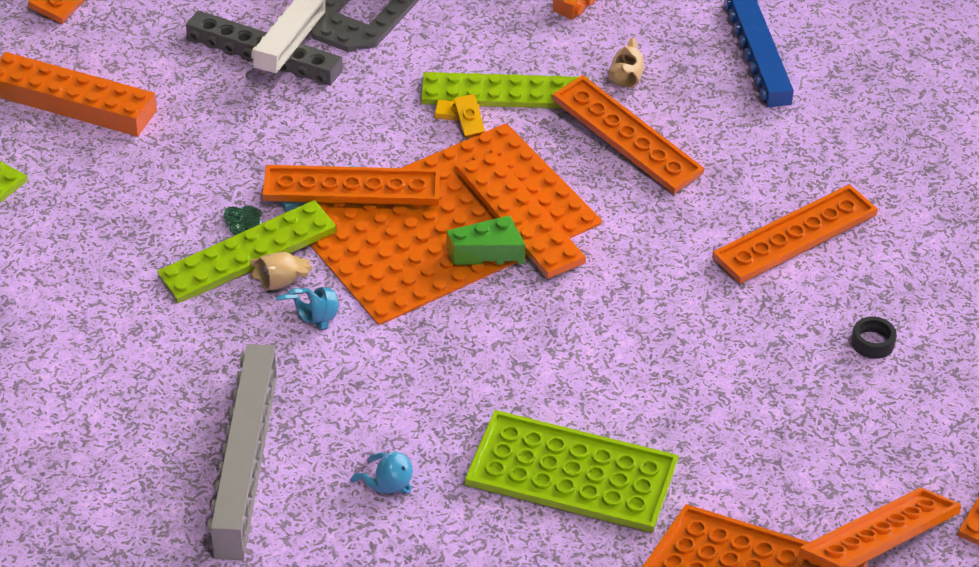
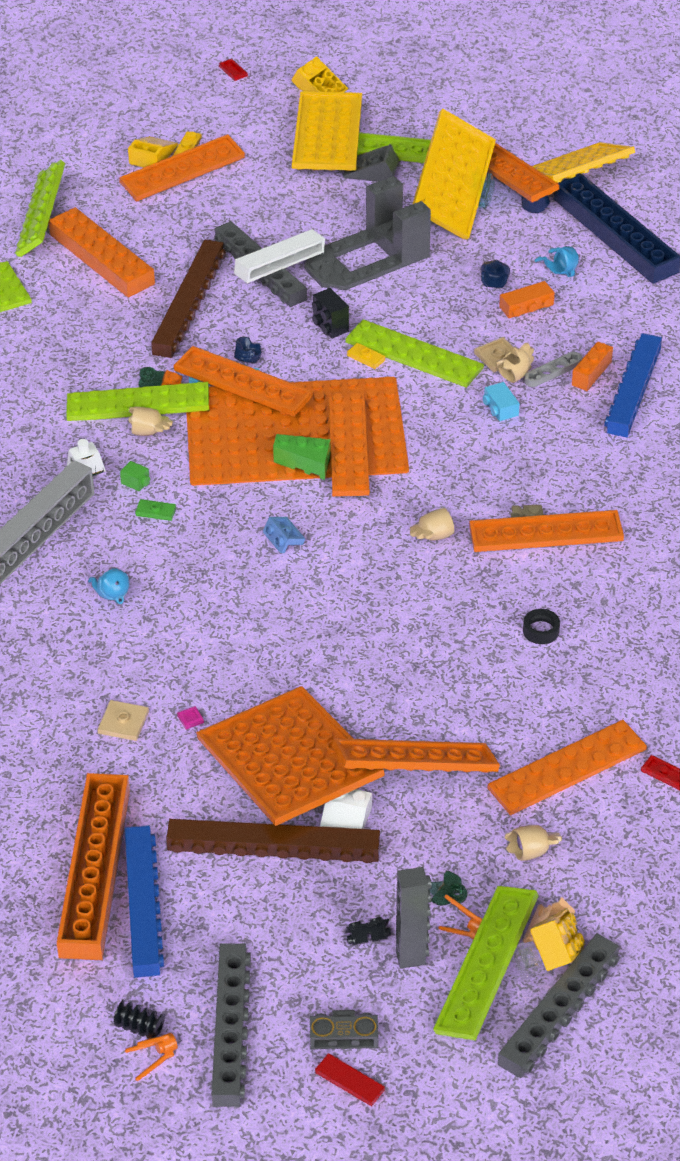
camera: 30 degrees right, 0 degrees up
(213, 115) = (188, 299): none -> reddish brown brick
(242, 333) = (88, 455): none -> white torso
(265, 211) = (171, 378): none -> orange plate
(314, 337) = (135, 476): none -> bright green brick
(322, 305) = (149, 457): dark azure hair -> none
(328, 150) = (247, 351): none -> dark blue hair
(363, 368) = (155, 510): none -> bright green plate
(391, 76) = (330, 313): none -> black brick
(469, 115) = (368, 361): yellow plate -> none
(526, 341) = (282, 533): none -> medium blue bracket
(573, 470) = (243, 633): lime plate -> none
(593, 61) = (493, 352): none -> tan plate
(628, 134) = (475, 415): orange plate -> none
(645, 108) = (501, 401): none -> medium azure brick
(665, 59) = (536, 377): none -> light grey beam
(684, 270) = (433, 526): none -> tan piece
(703, 41) = (592, 366): none -> orange brick
(759, 219) = (528, 510): none -> dark tan plate

